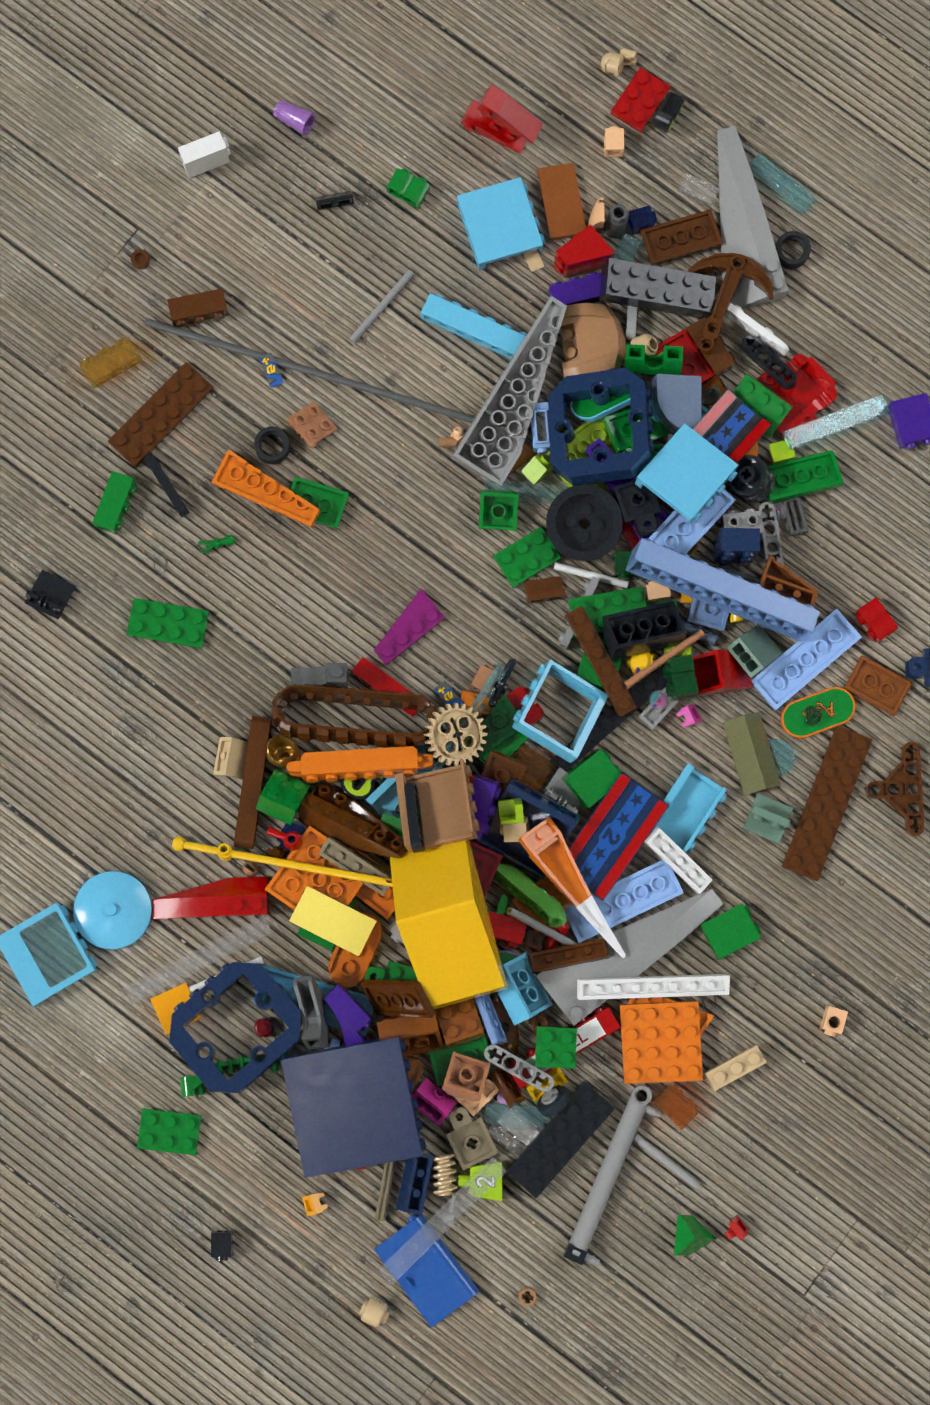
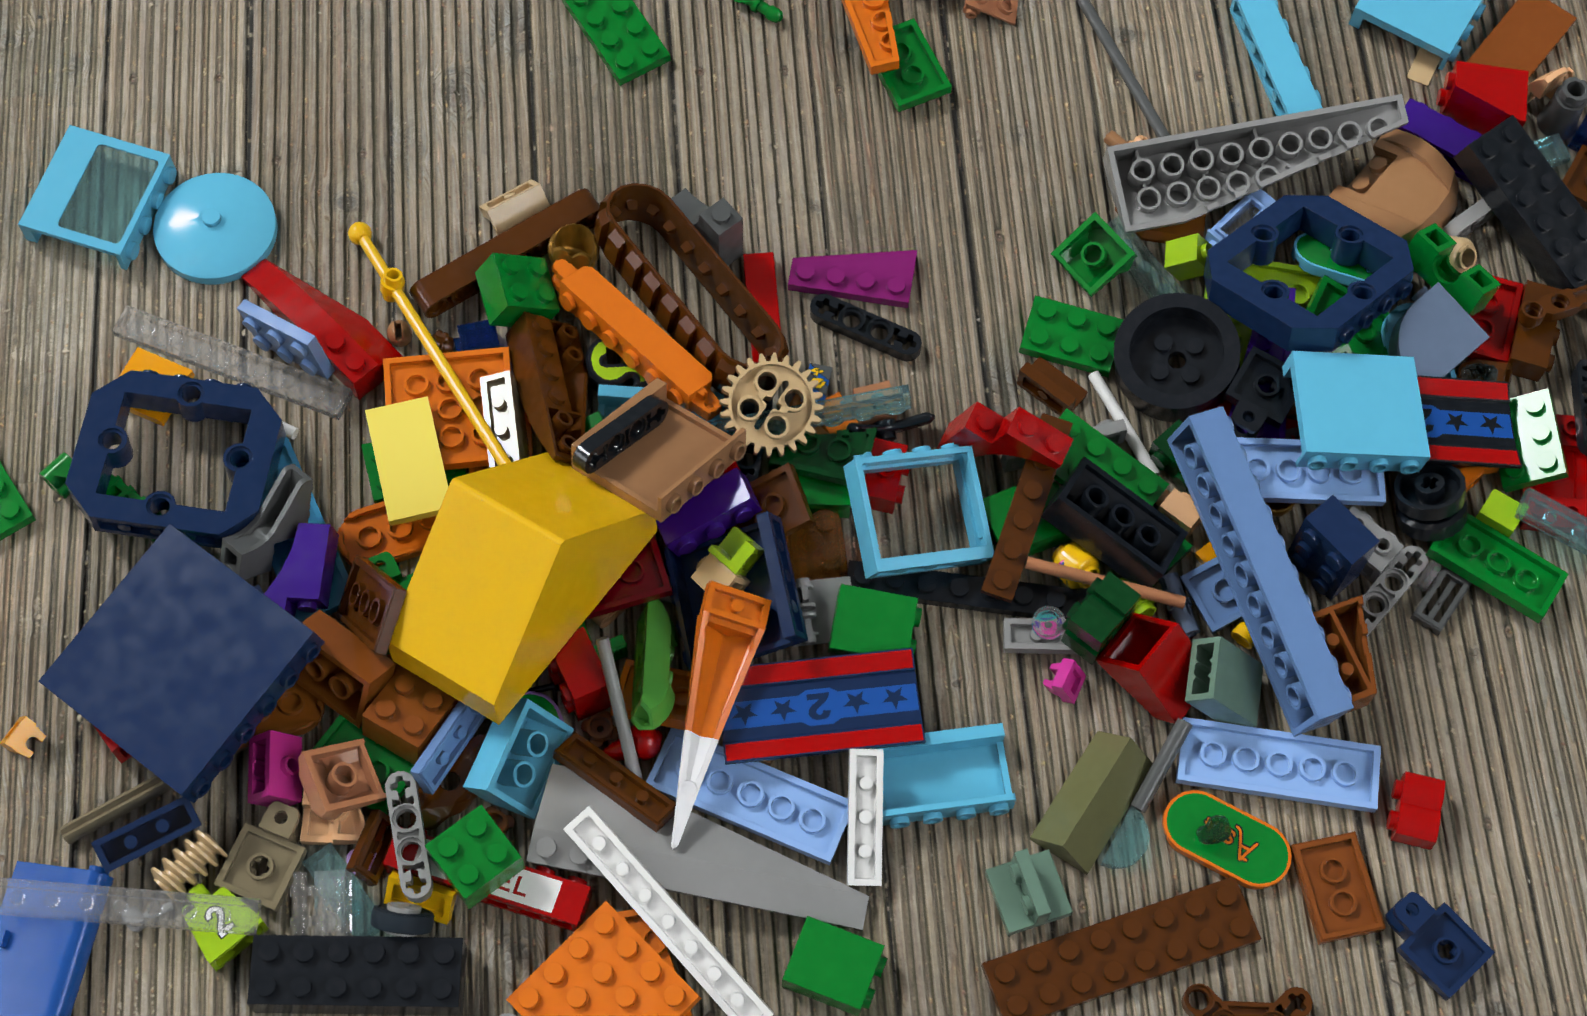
camera: 50 degrees right, 15 degrees down
(215, 929) = (285, 339): none -> medium blue plate
(264, 1027) = (209, 497): dark red piece -> none
(285, 837) = (469, 345): red bar -> none
(440, 650) = (862, 332): none -> black beam
(560, 642) = (1014, 435): none -> red arch
(763, 710) = (1161, 765): none -> dark grey piece

